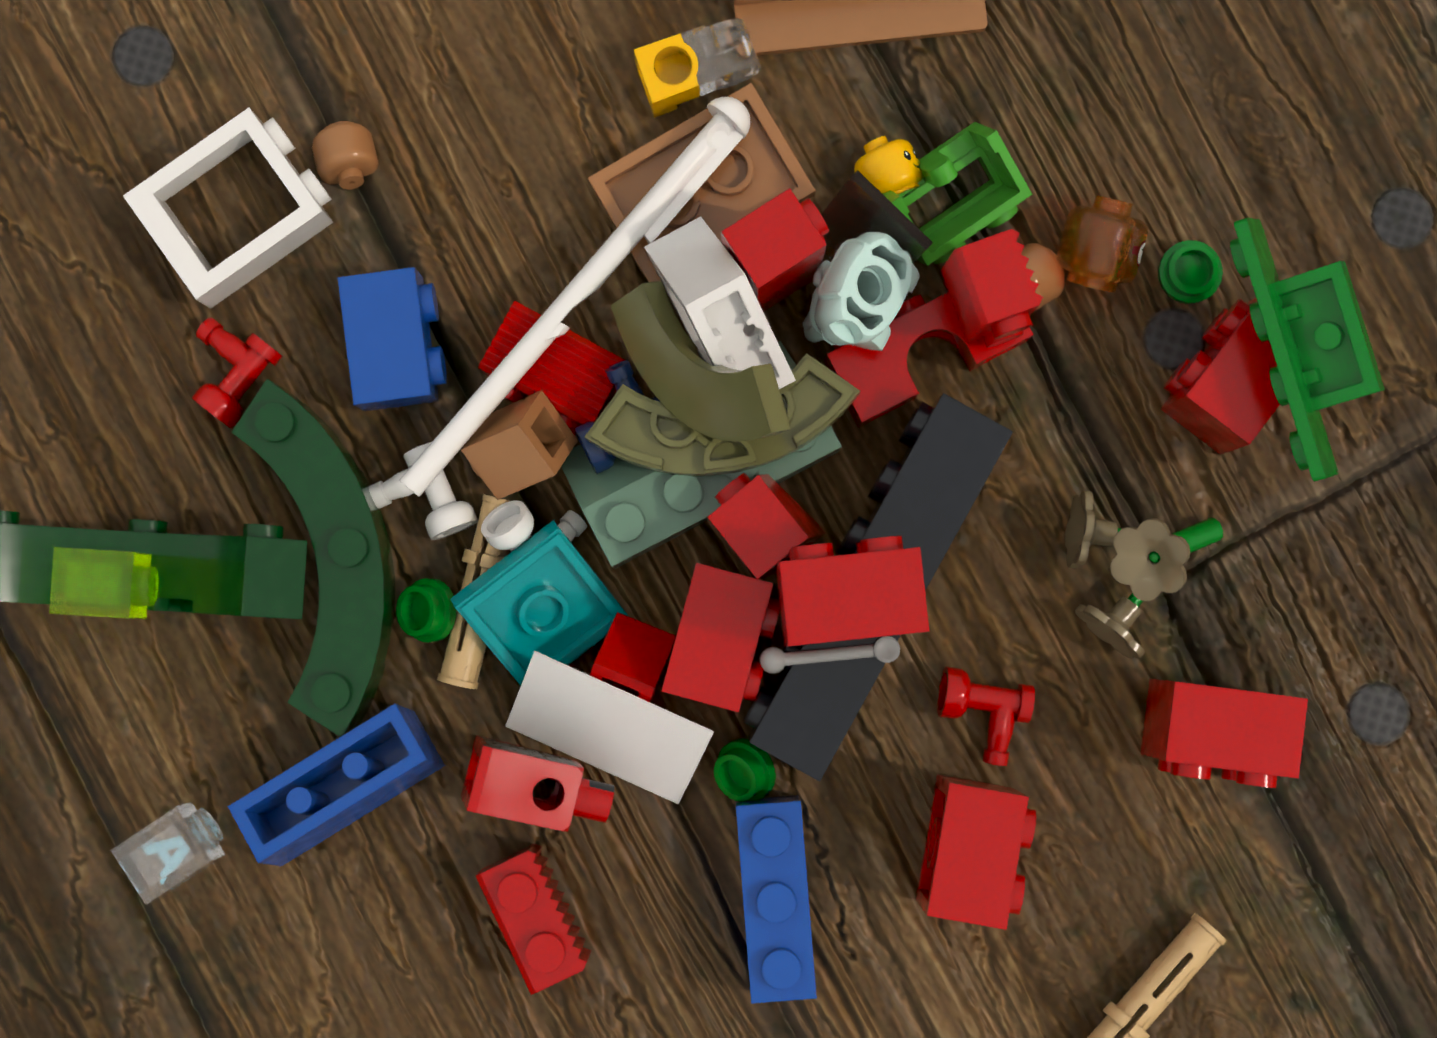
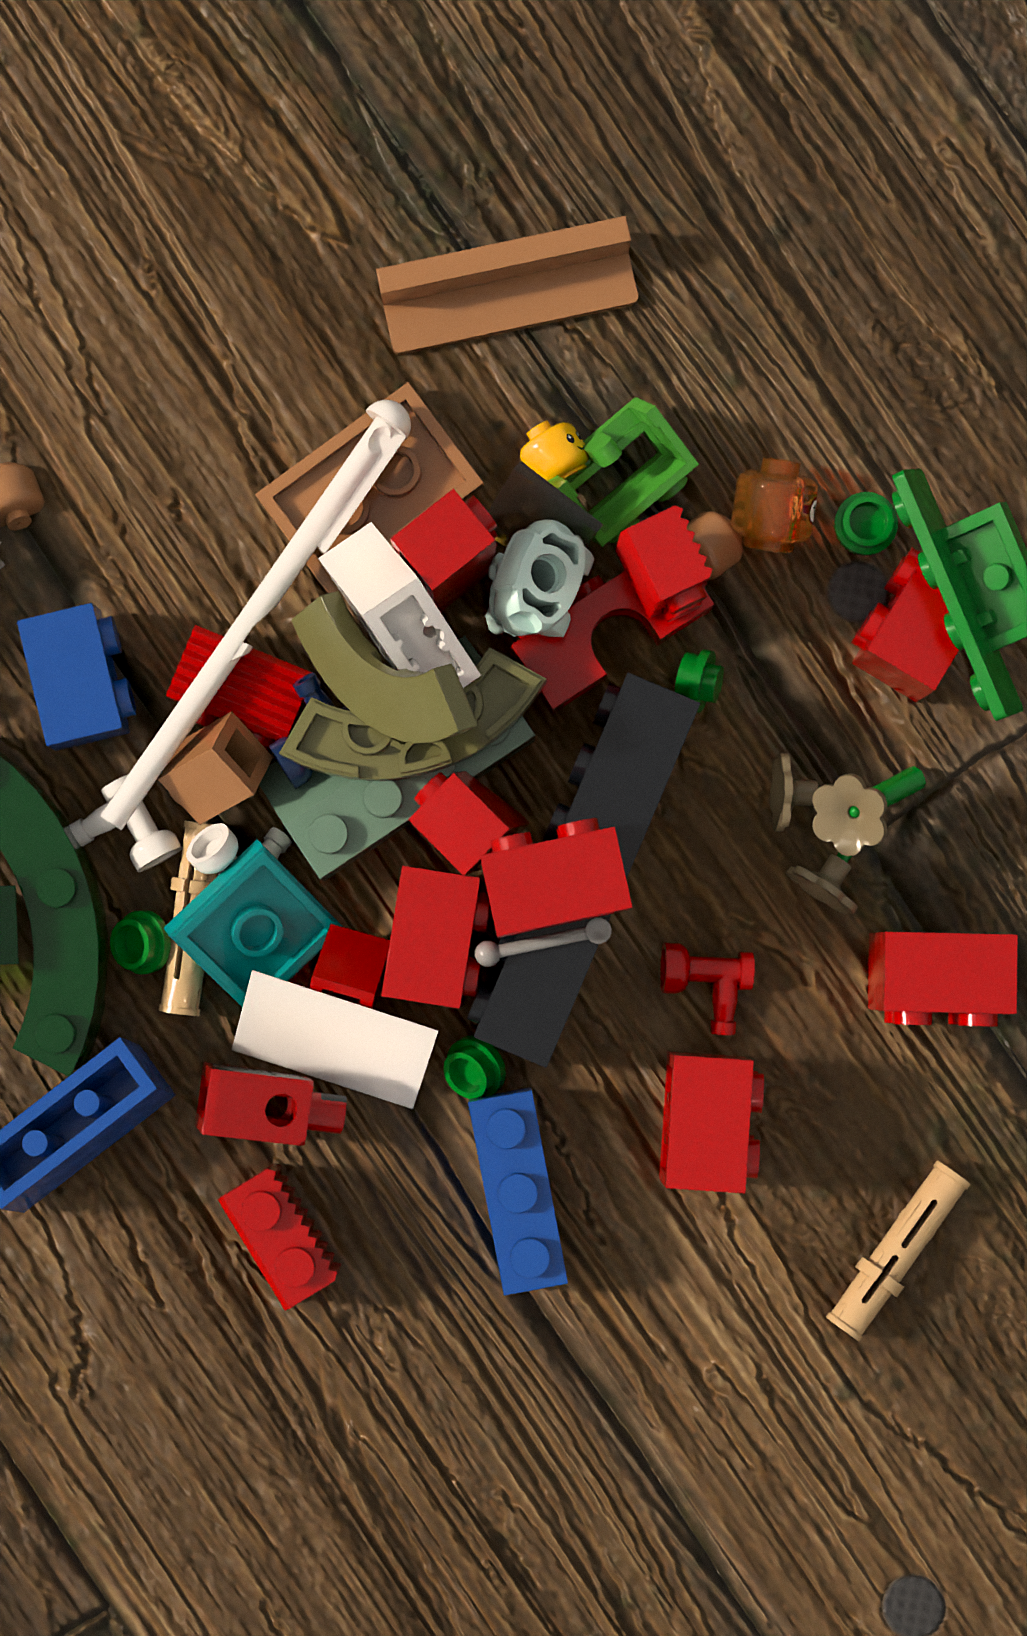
camera: 10 degrees left, 0 degrees up
(695, 63) = (351, 368): leg -> none
(1010, 405) = (700, 677): none -> green plate

